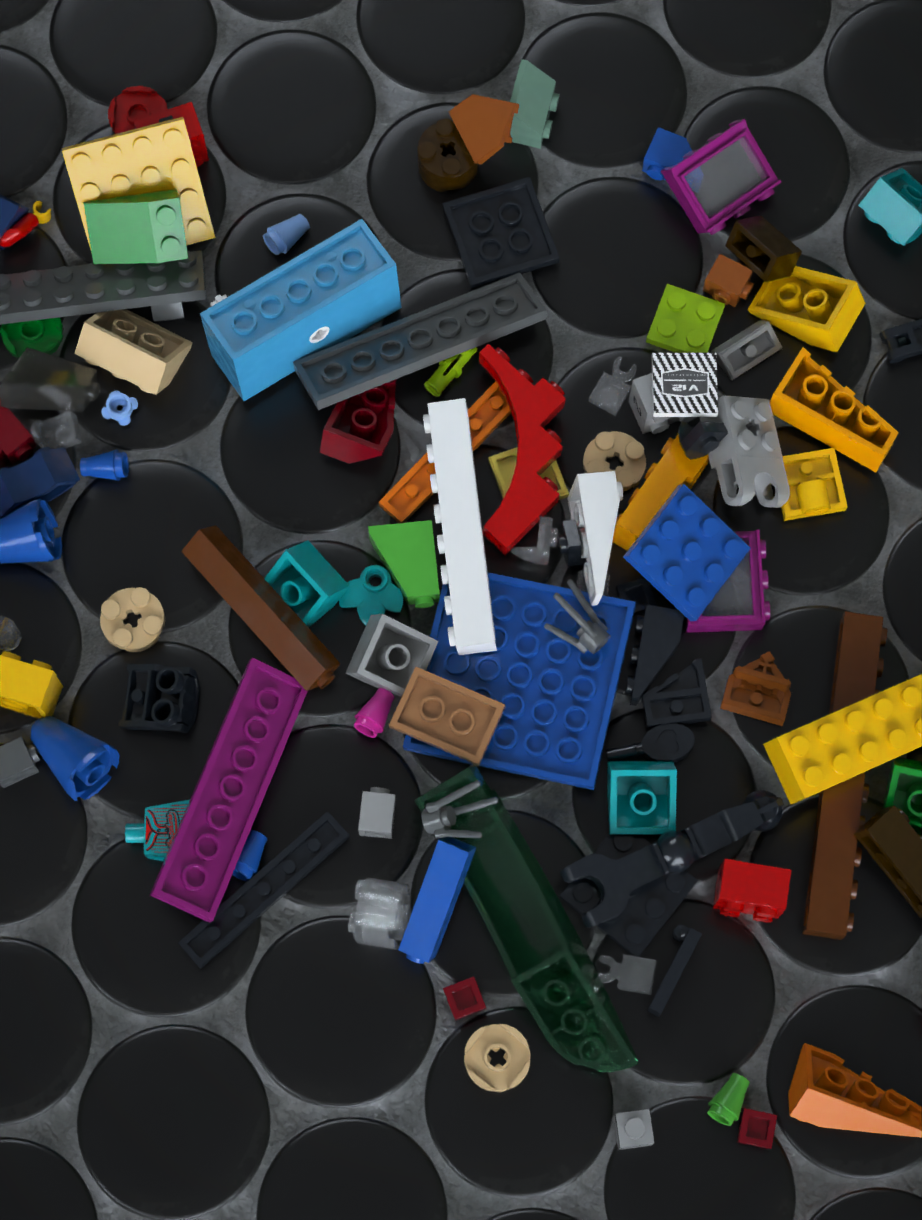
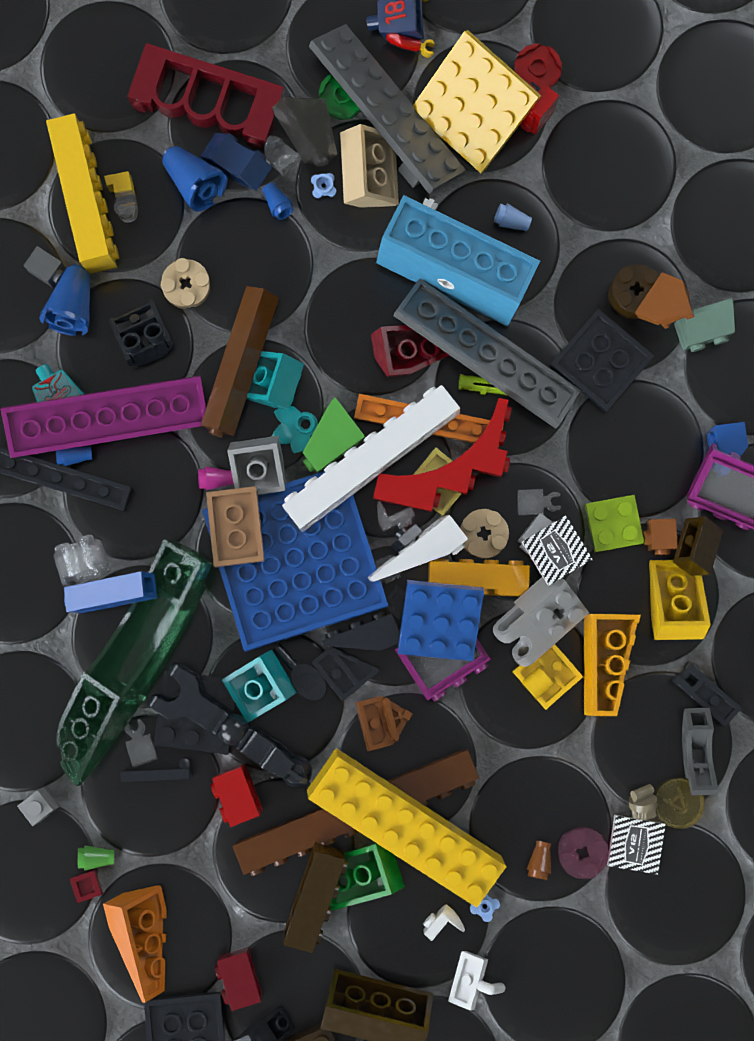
camera: 60 degrees right, 10 degrees up
(136, 229) = (448, 118): slope -> none
(377, 813) = (148, 519): light grey brick -> none
(439, 818) = (158, 565): dark grey plant -> none
(464, 998) = (61, 648): dark red plate -> none
(478, 1061) = (25, 701): tan plate -> none
(591, 635) = (345, 589): dark grey plant -> none
(701, 439) = (526, 583): black plate -> none
(747, 349) = (621, 576): light grey slope -> none

